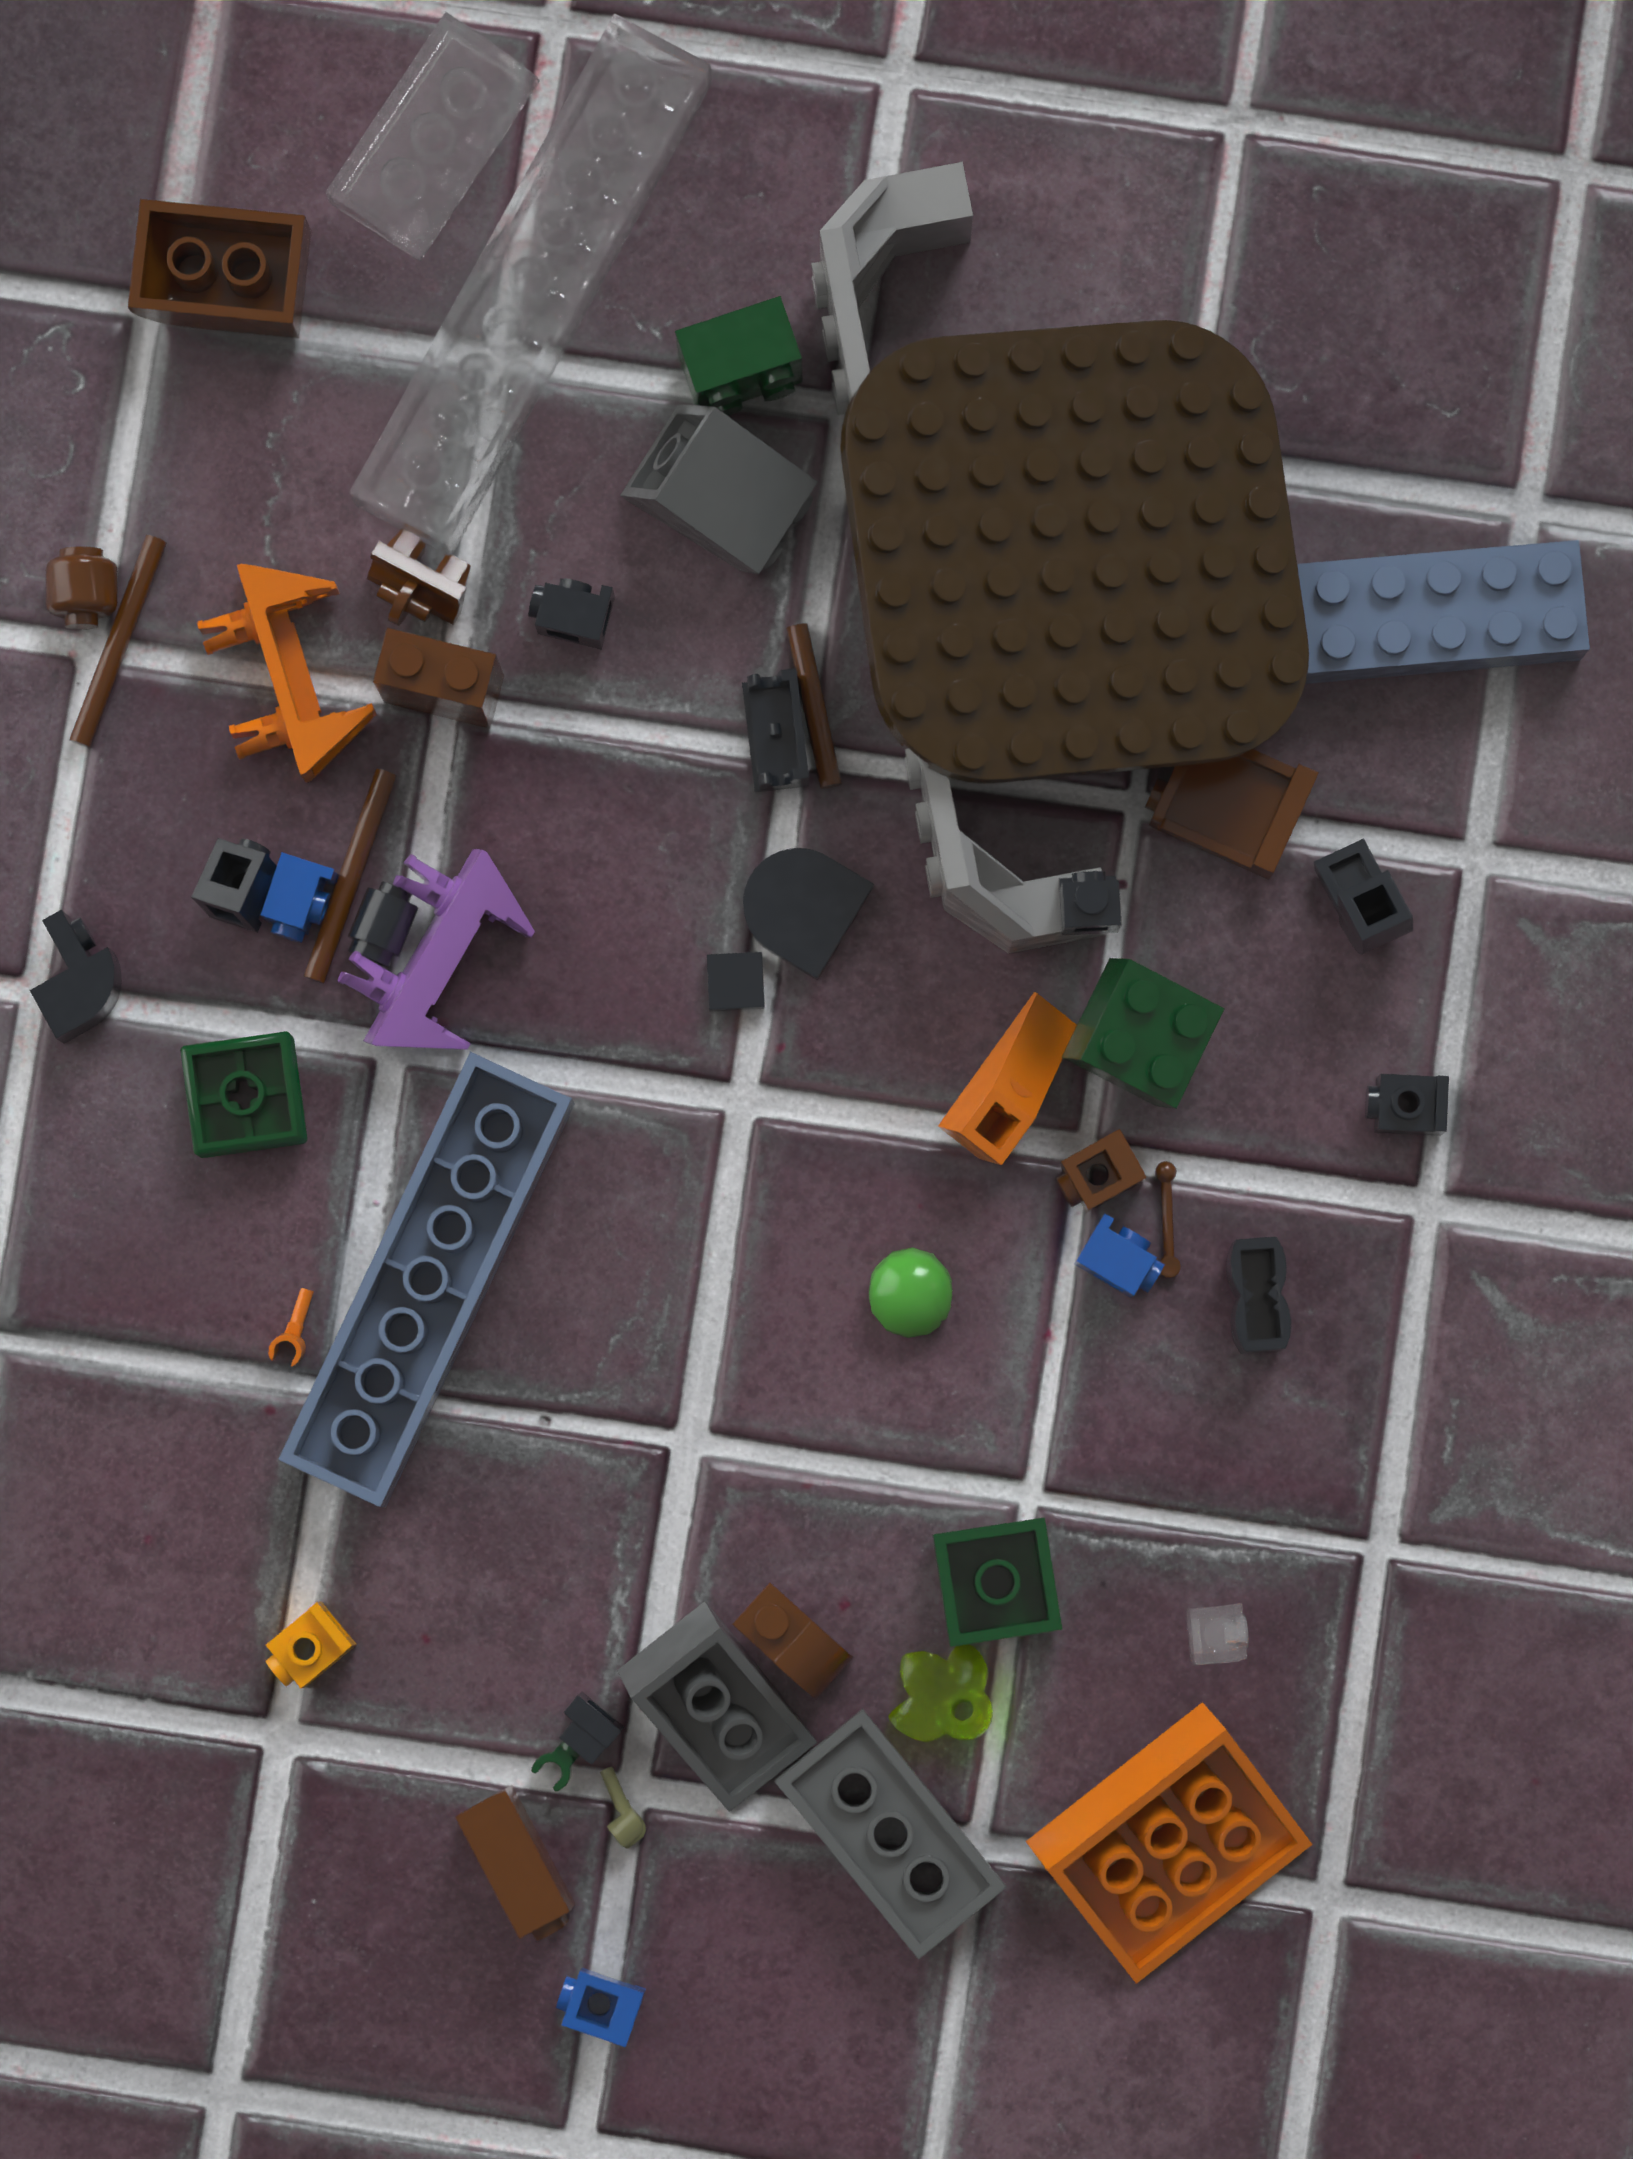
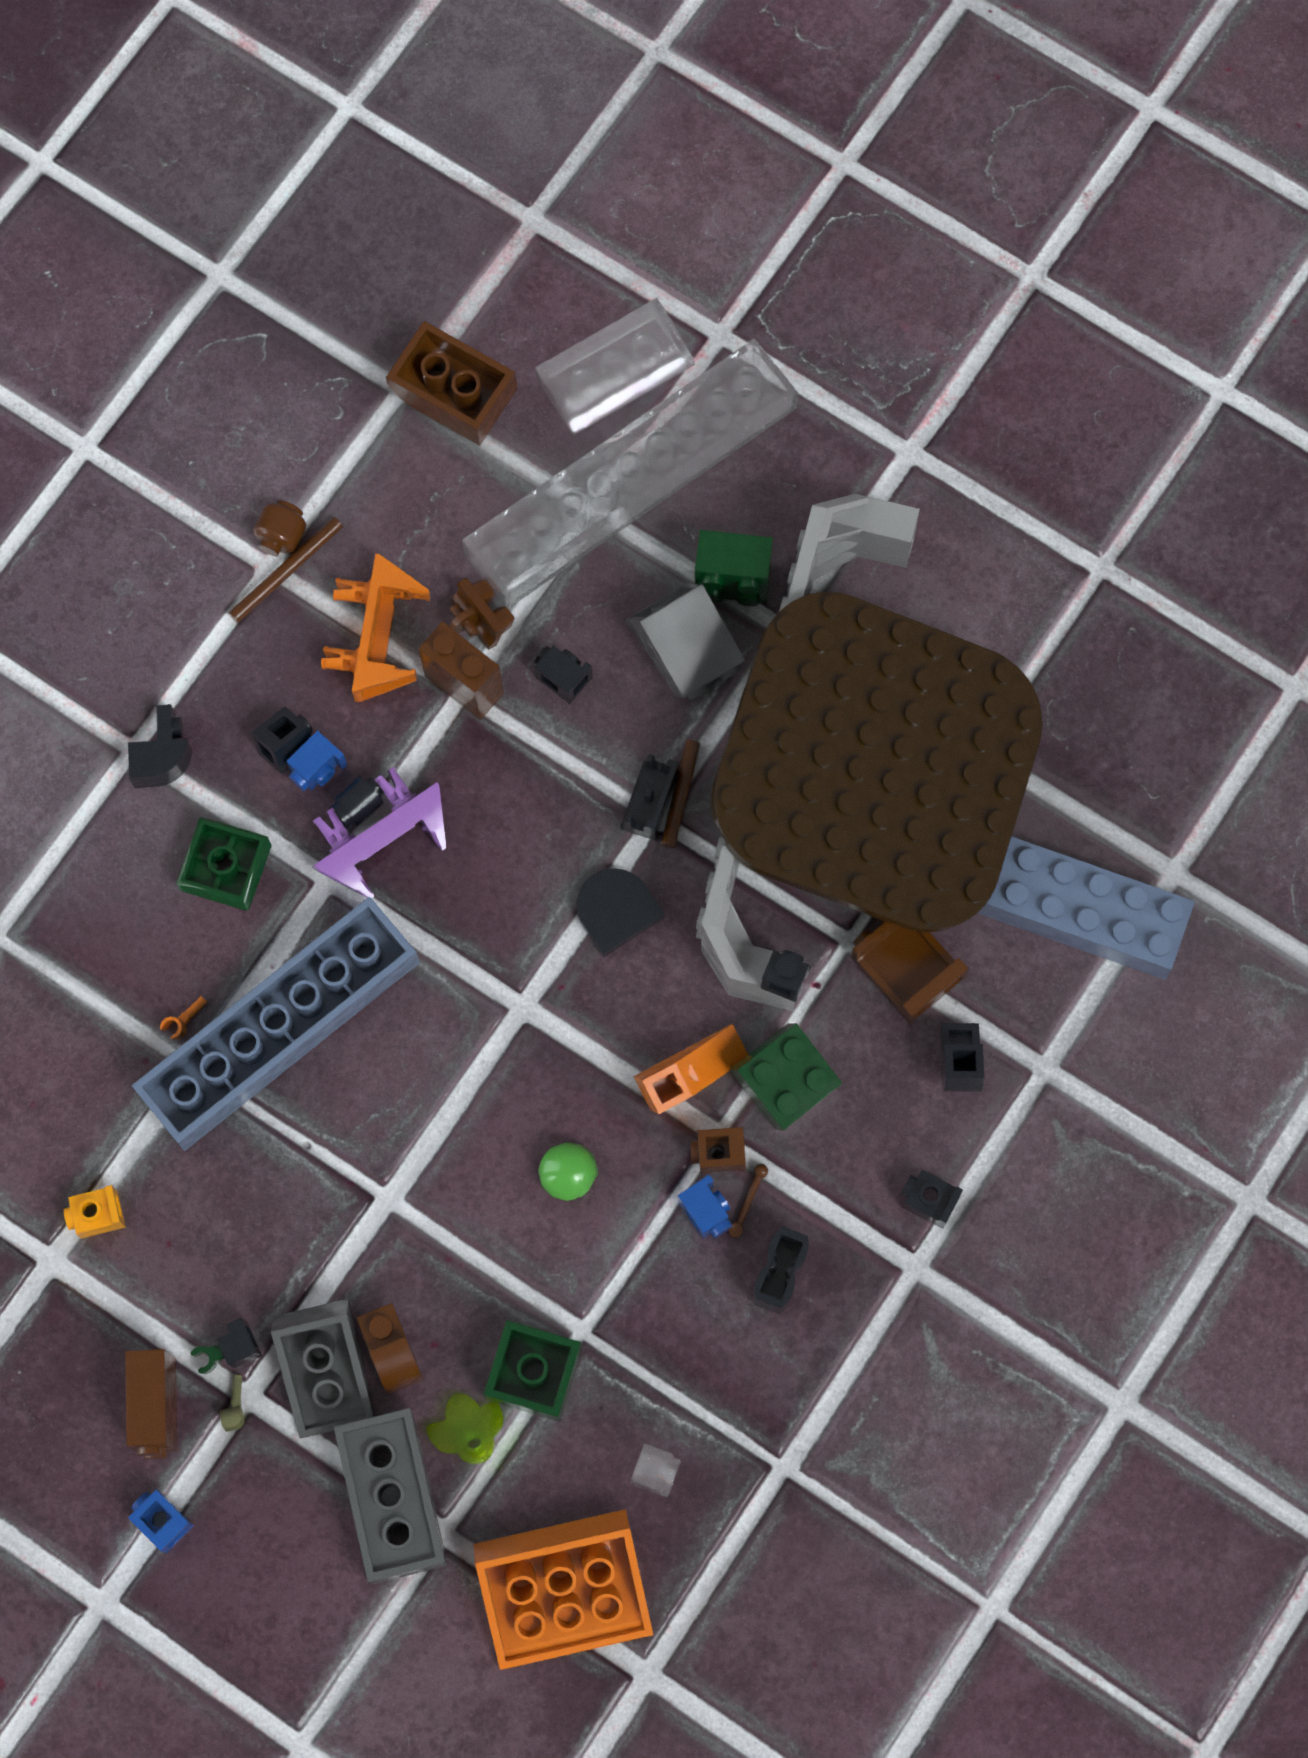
camera: 25 degrees right, 10 degrees down
(350, 875) = (353, 766): reddish brown bar -> none
(735, 981) = (553, 934): black tile -> none

